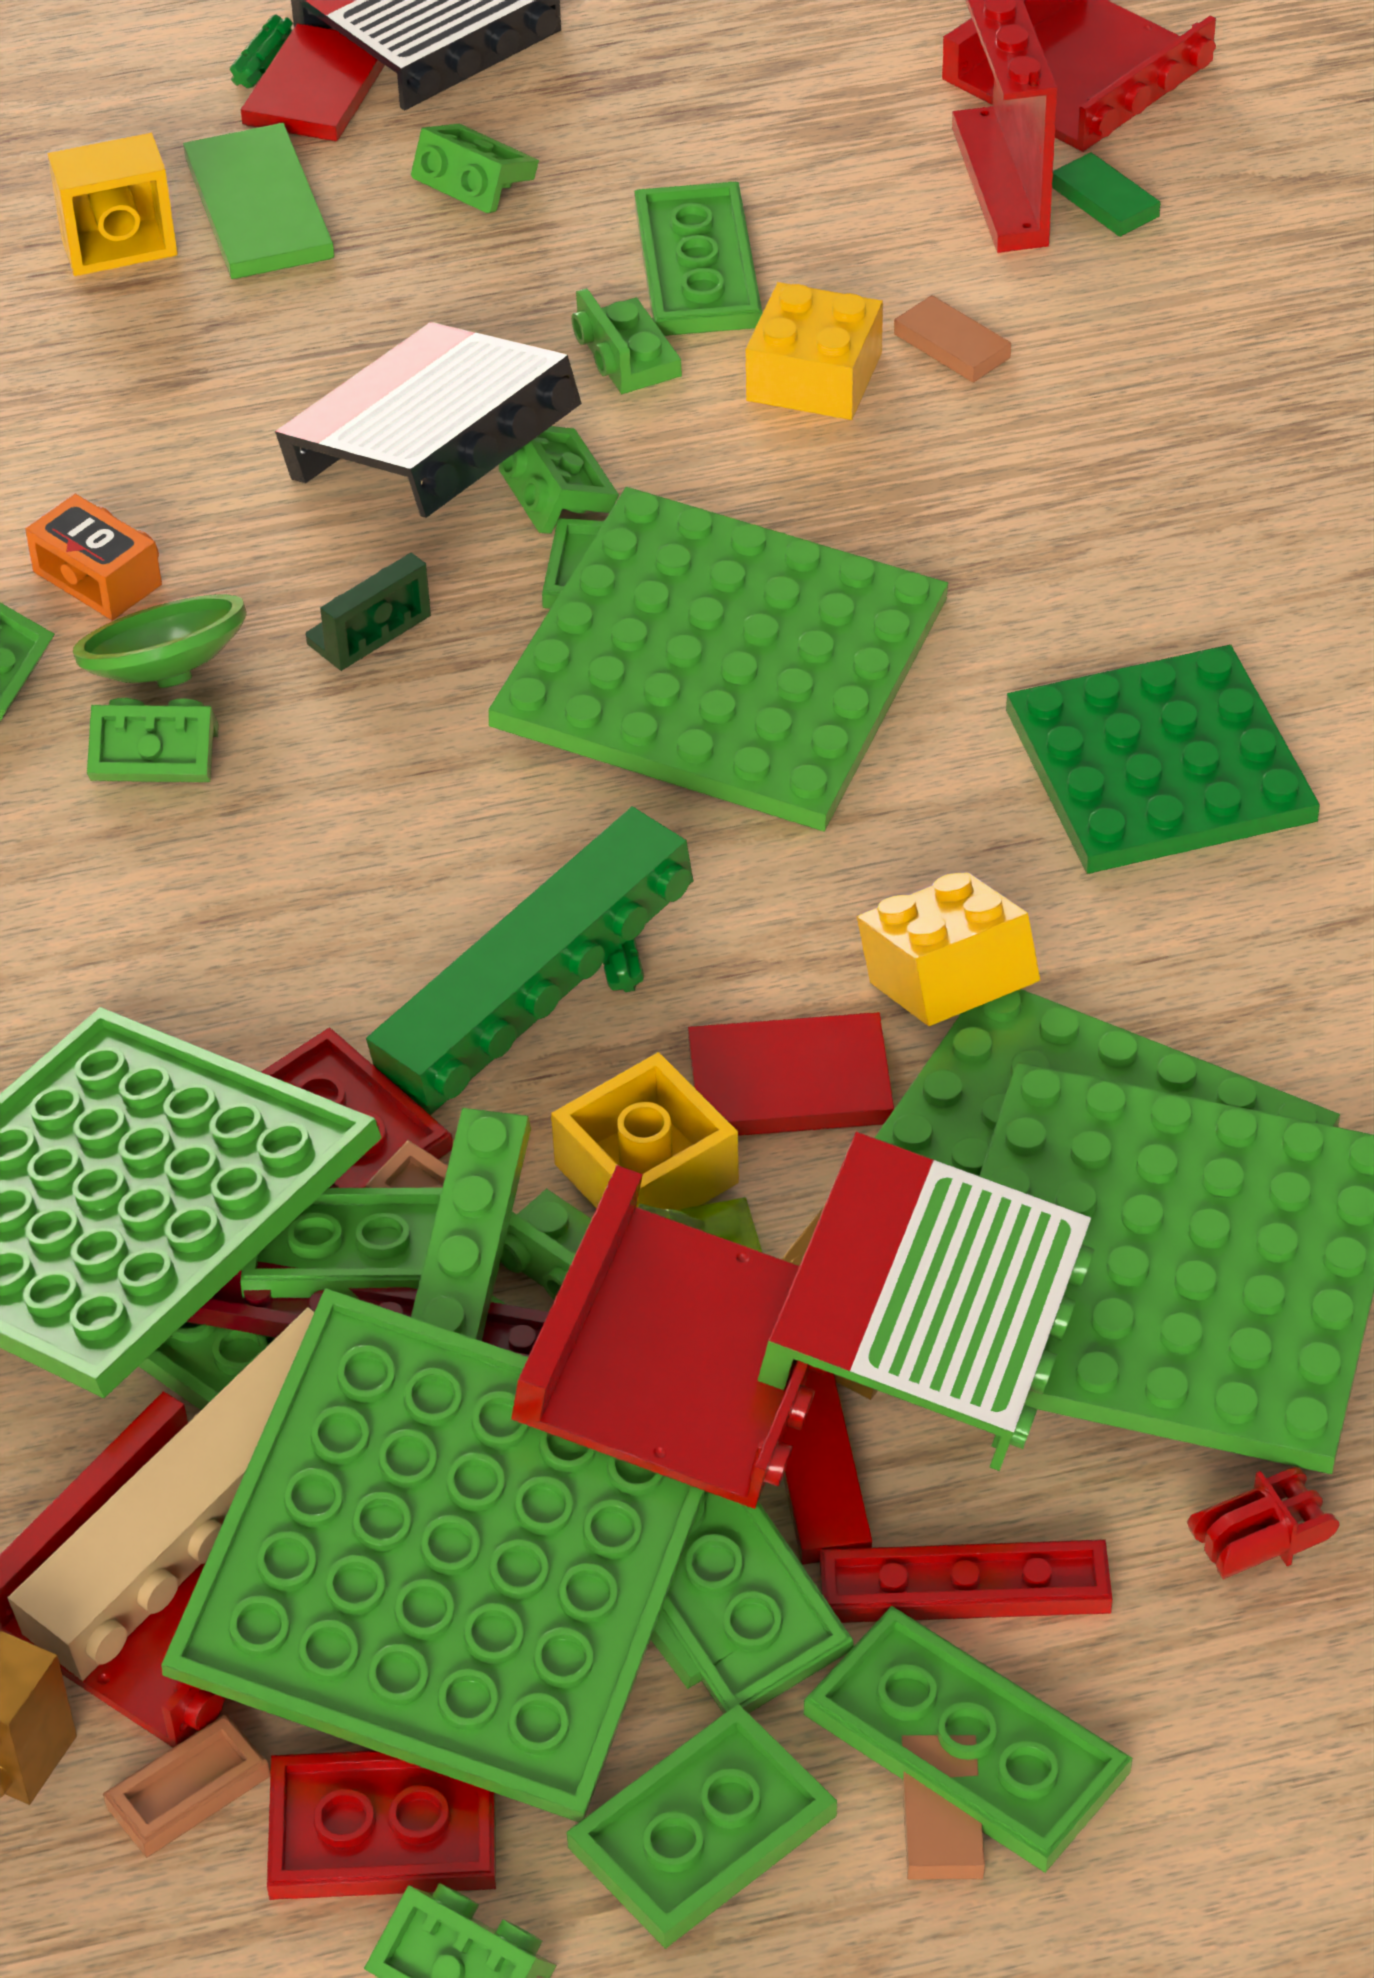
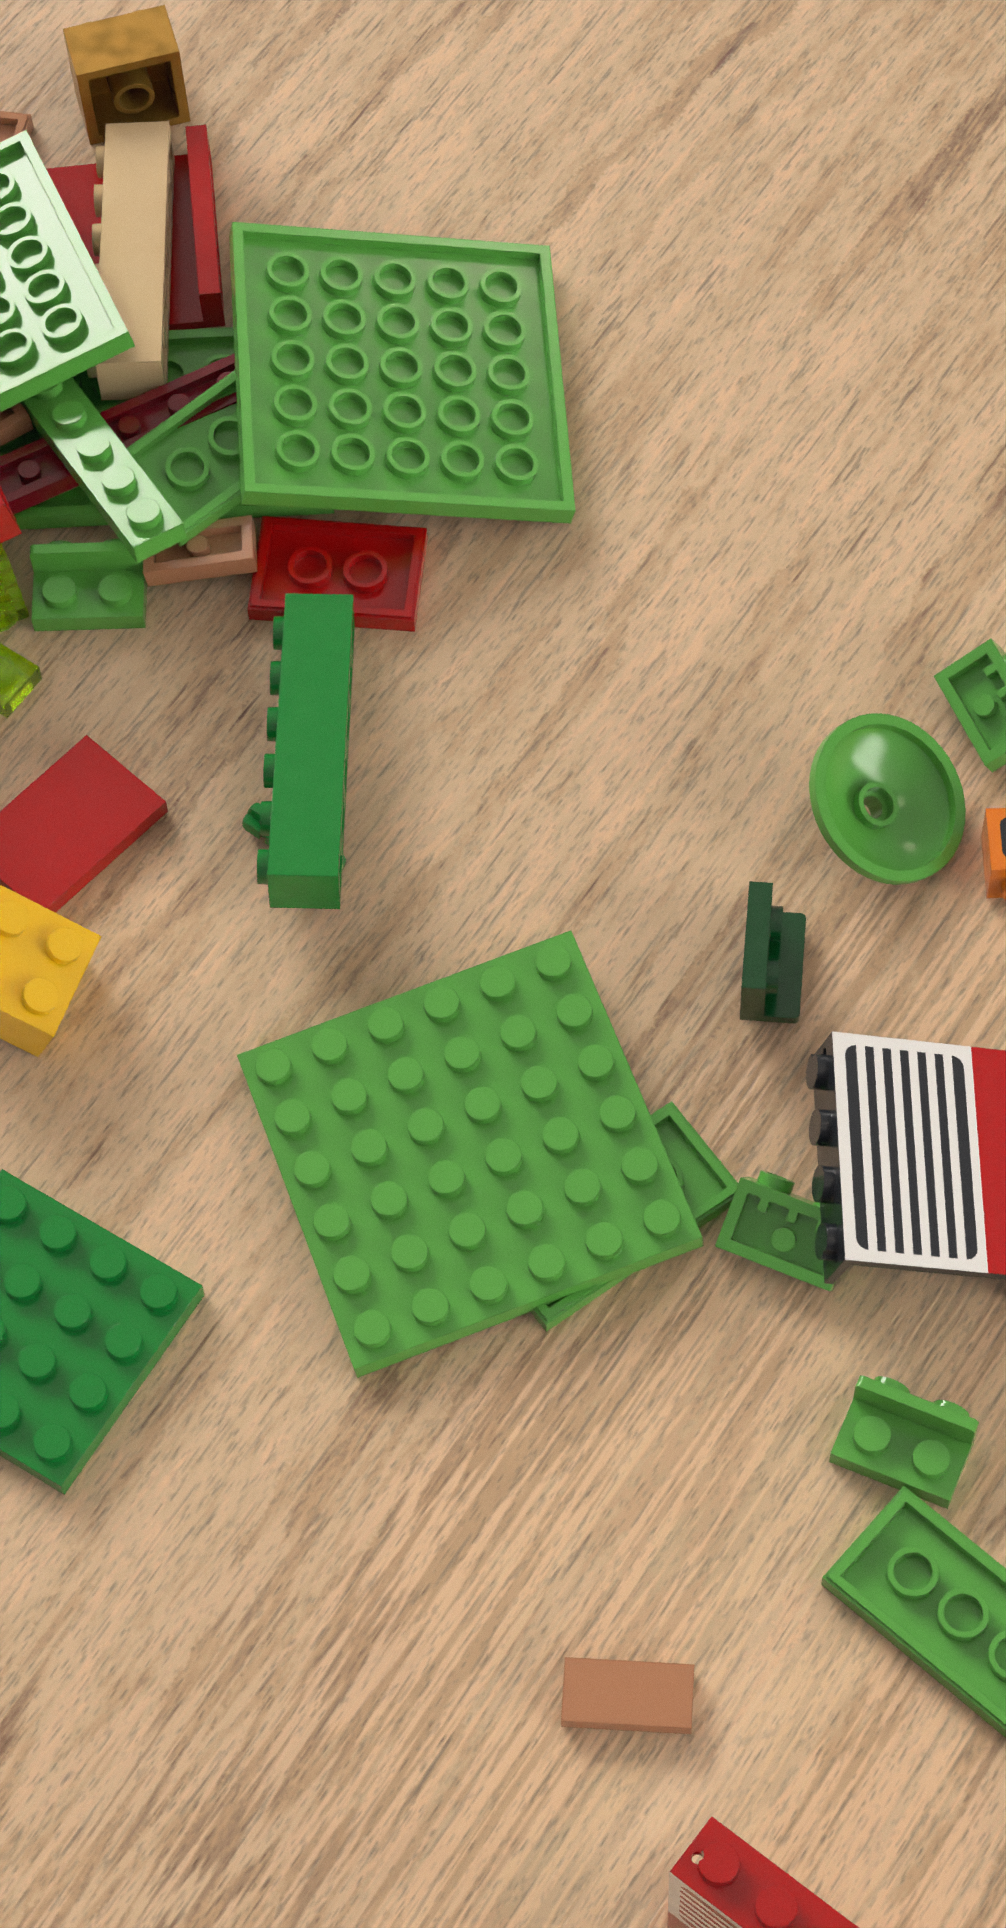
camera: 140 degrees right, 15 degrees up
(151, 741) = (789, 731): bright green bracket -> none
(651, 1125) = (89, 667): yellow brick -> none
(814, 350) = (715, 1545): yellow brick -> none

